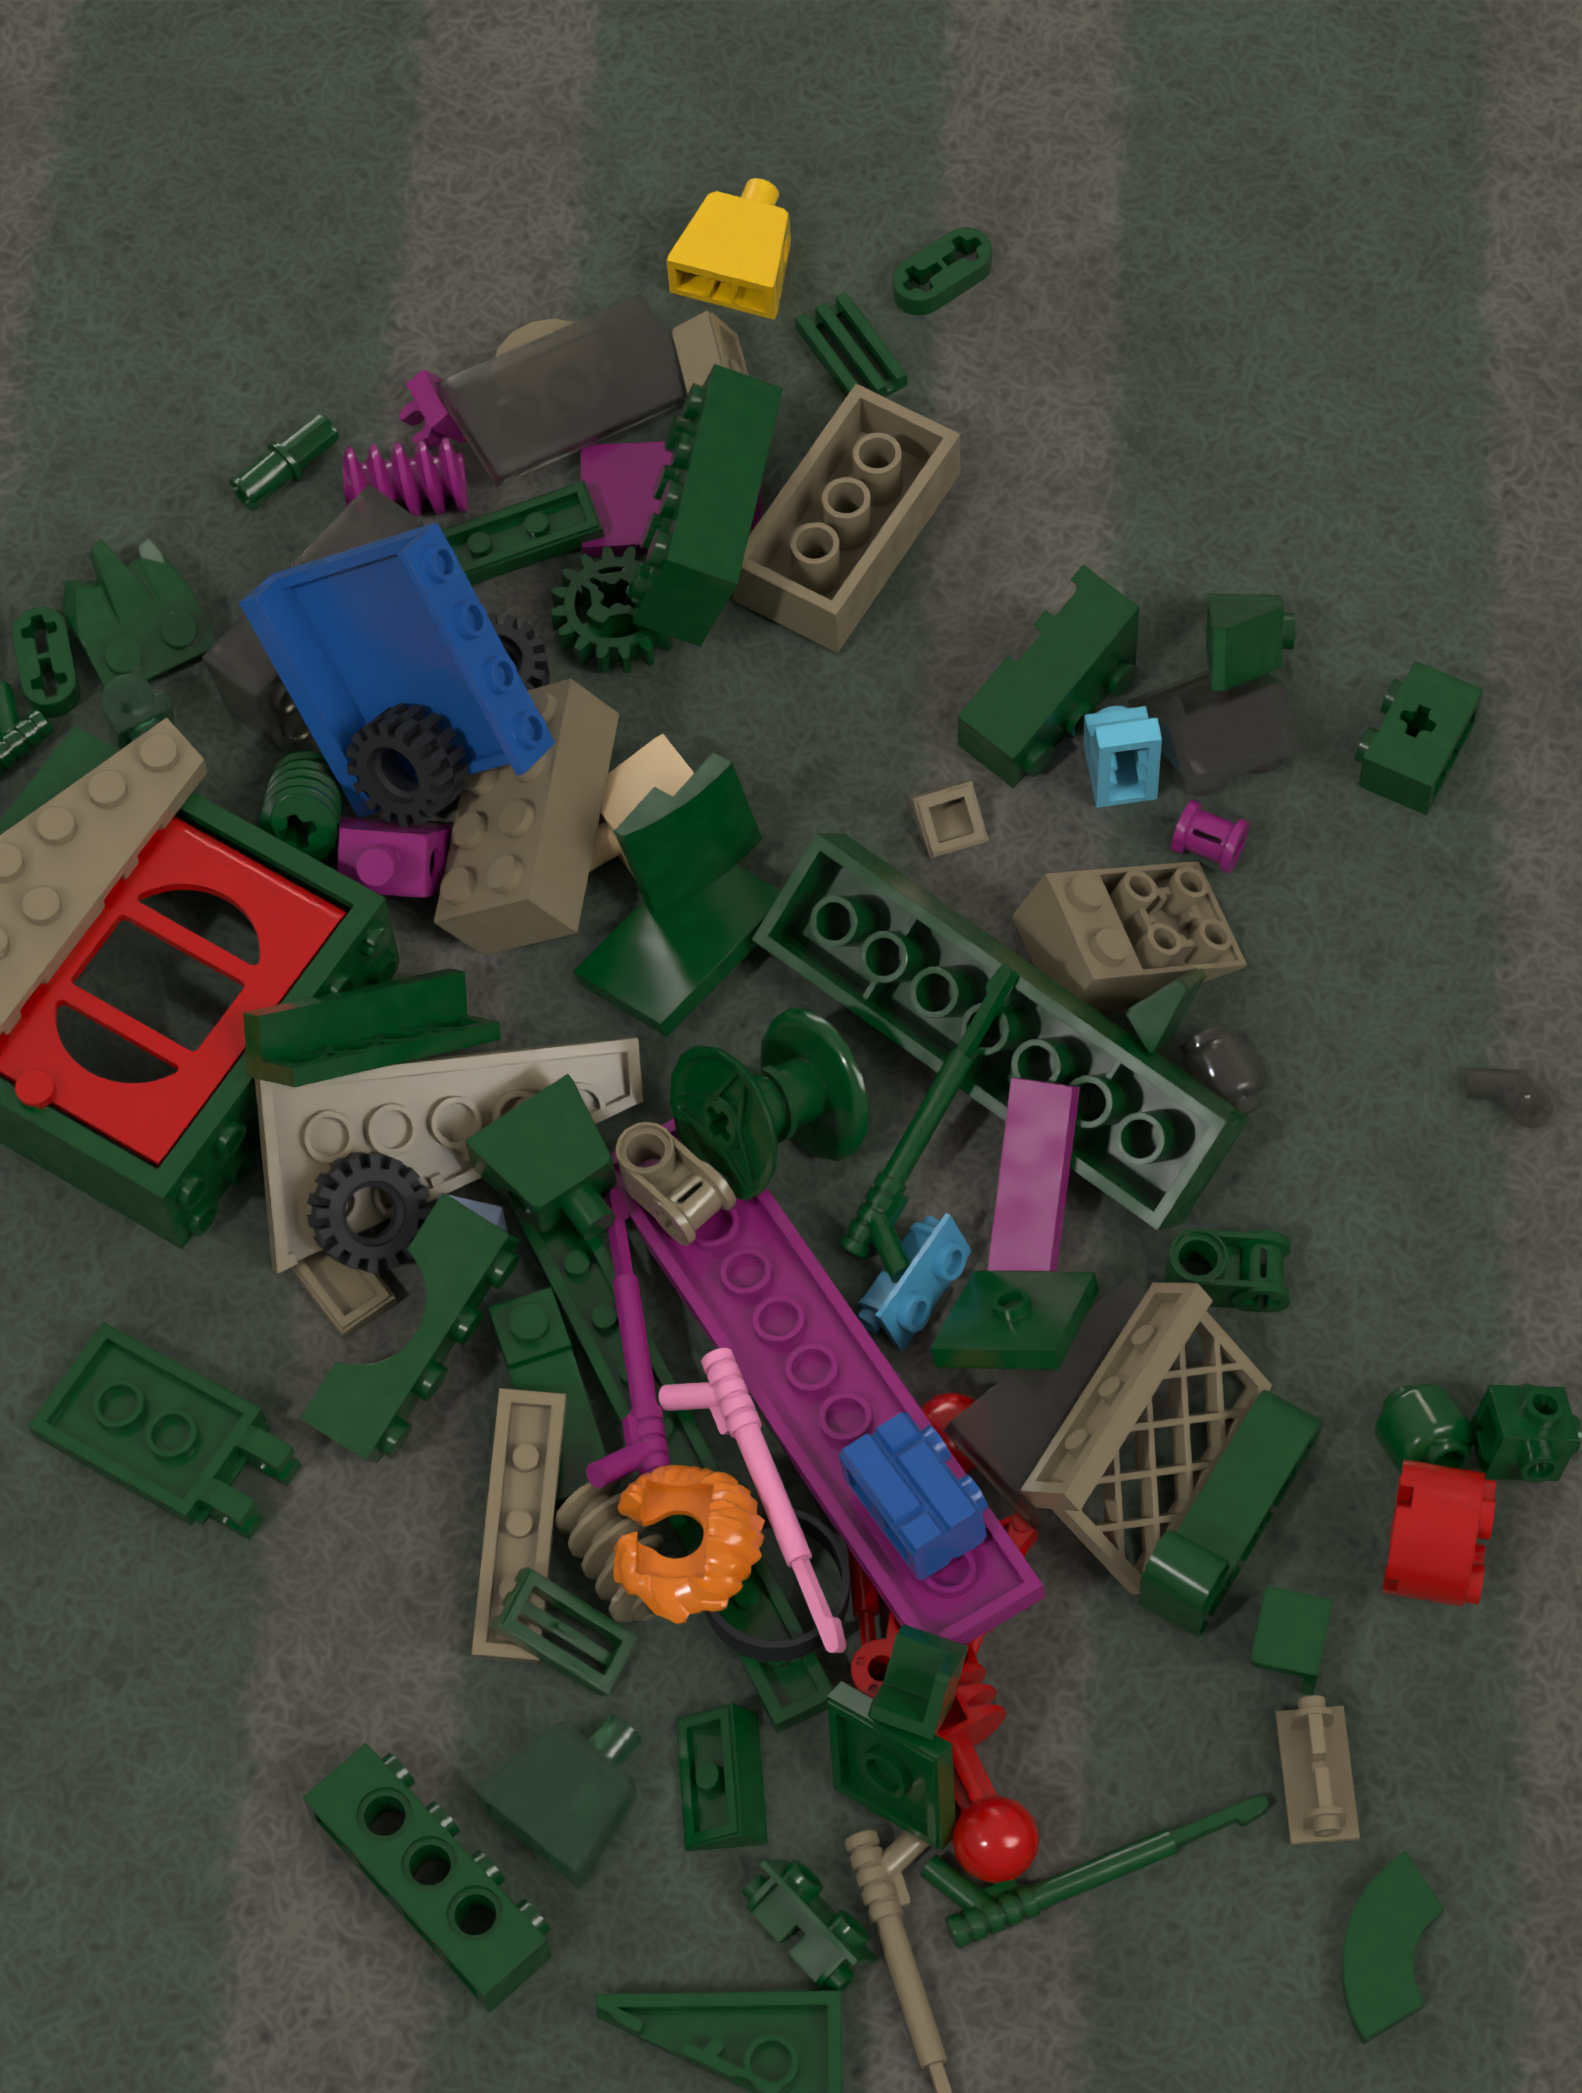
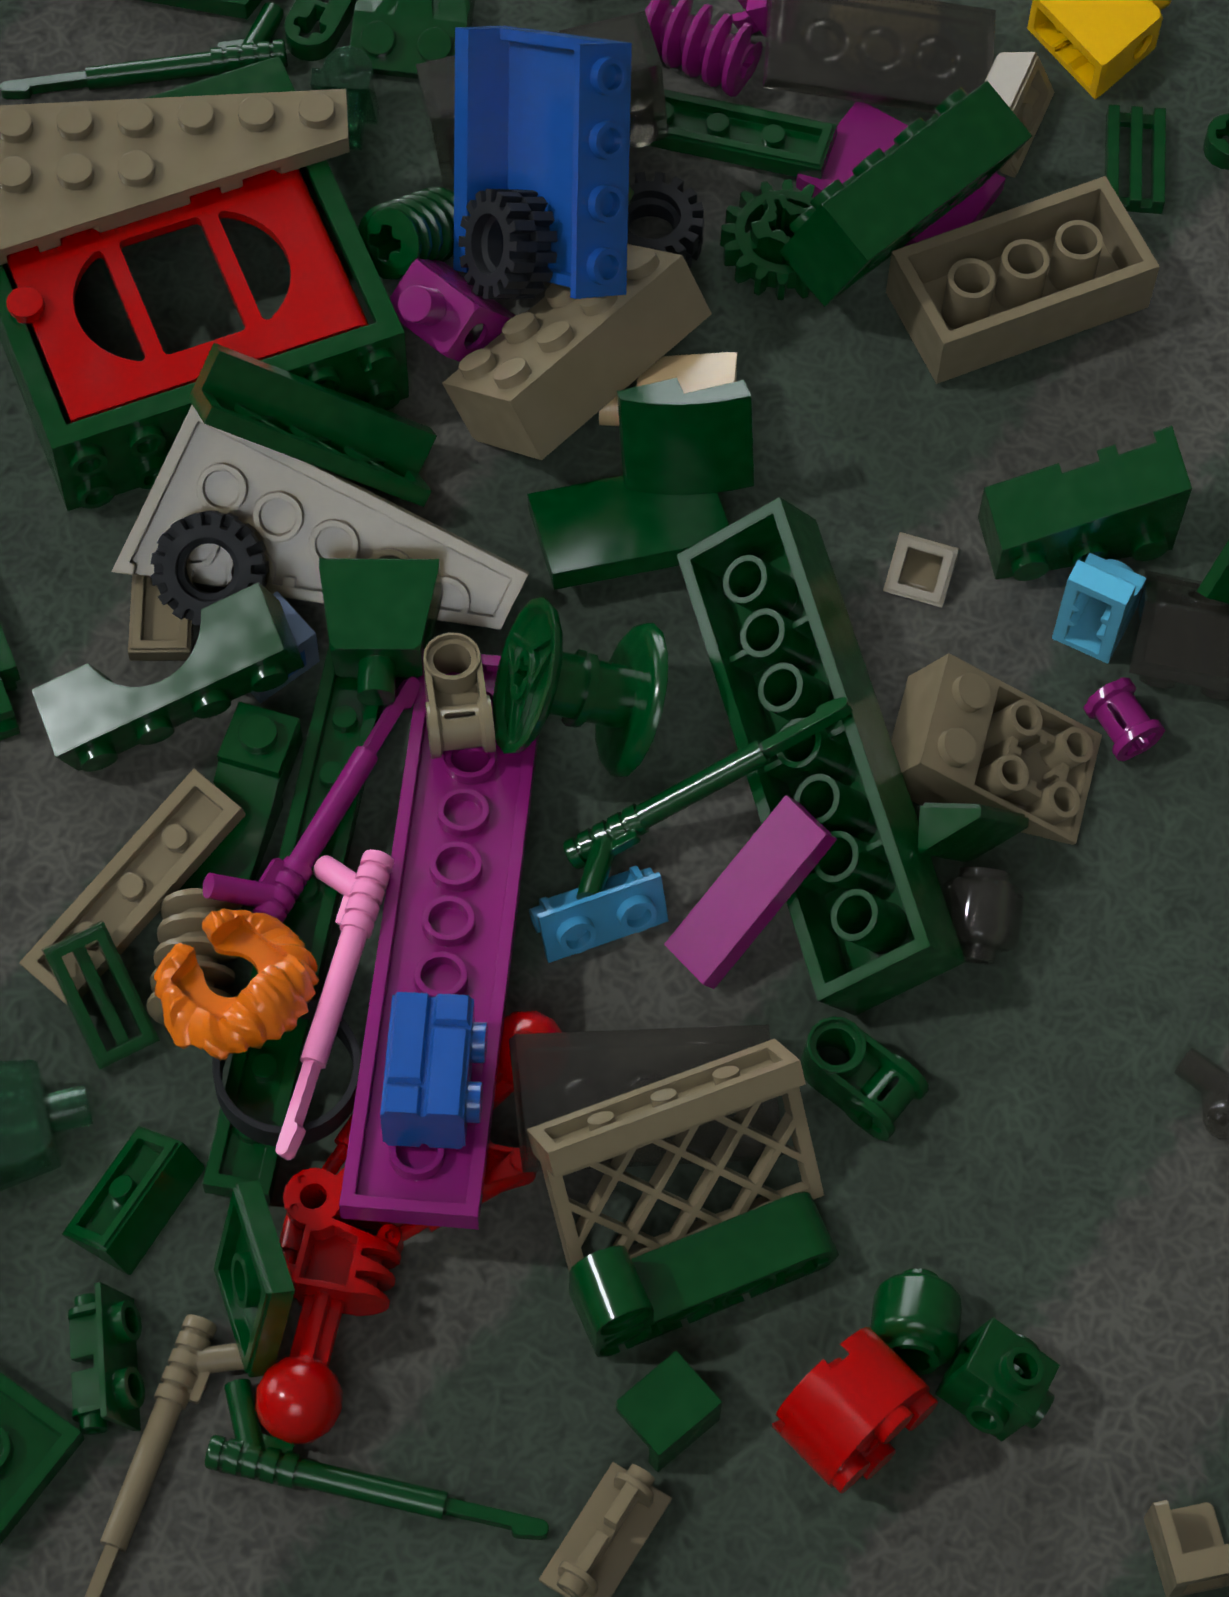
camera: 30 degrees right, 0 degrees up
(919, 1682) = (313, 1226): dark green panel -> none
(1015, 1320) = (645, 994): dark green plate -> none

